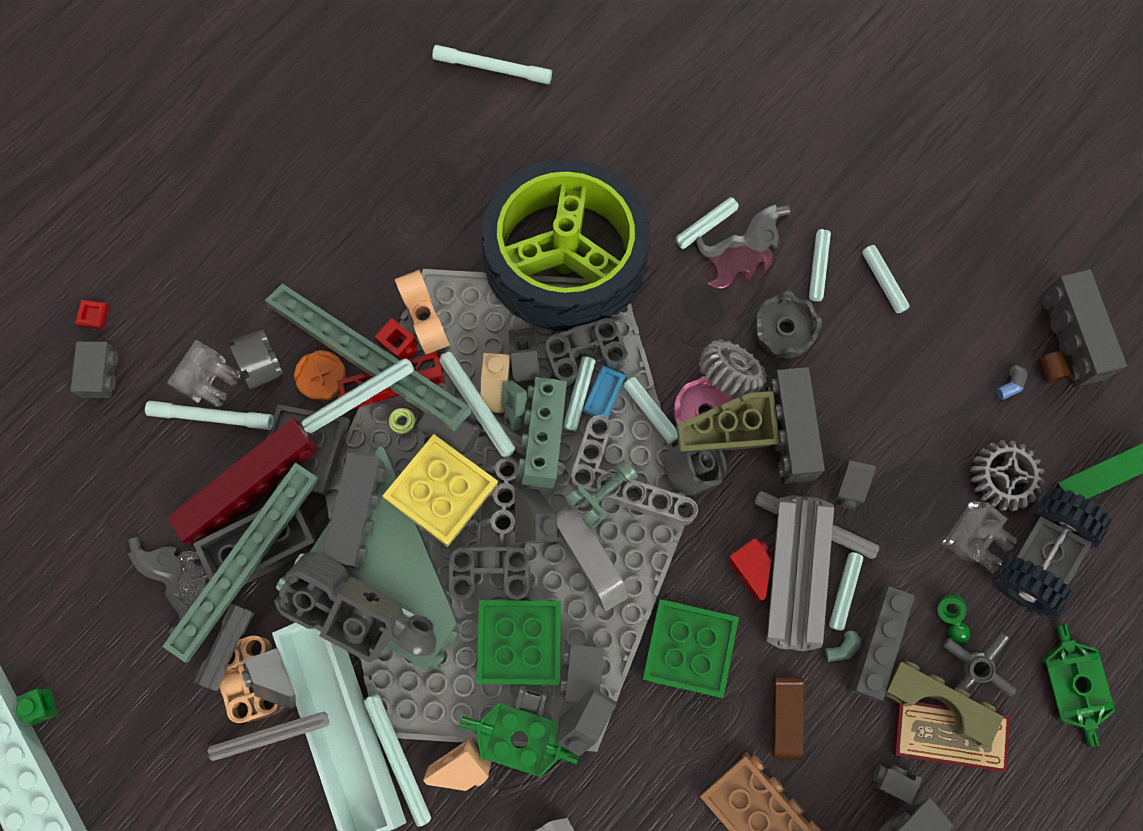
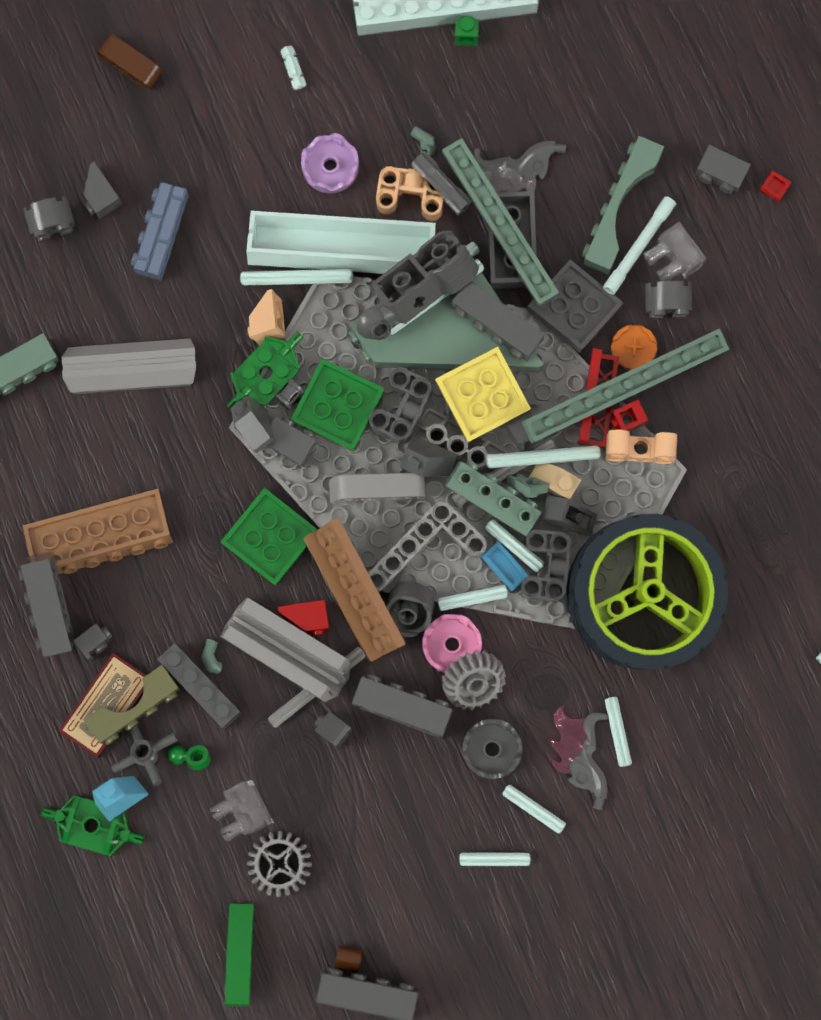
camera: 120 degrees right, 5 degrees up
(113, 453) = (641, 163): none -> sand green arch
(181, 692) = (426, 140): none -> sand green arm
(231, 787) = (327, 148): none -> lavender plate
(243, 483) = (566, 250): dark red brick -> none
(268, 736) = (359, 190): light grey axle -> none
(269, 679) = (401, 207): slope -> none
(358, 395) = (590, 363): light aqua axle -> none
(402, 413) = (559, 386): yellowish green plate -> none
(577, 497) = (426, 543): sand green bar -> none
(704, 530) = (354, 590): none -> medium nougat bracket
(738, 424) = (424, 652): olive wedge -> none
(787, 717) = (181, 584): reddish brown beam -> none
(846, 591) = (253, 682): light aqua axle -> none
(1016, 385) = (351, 919): arm -> none
(1037, 670) = (118, 795): none -> medium azure slope
(1053, 552) = (200, 857): black plate -> none

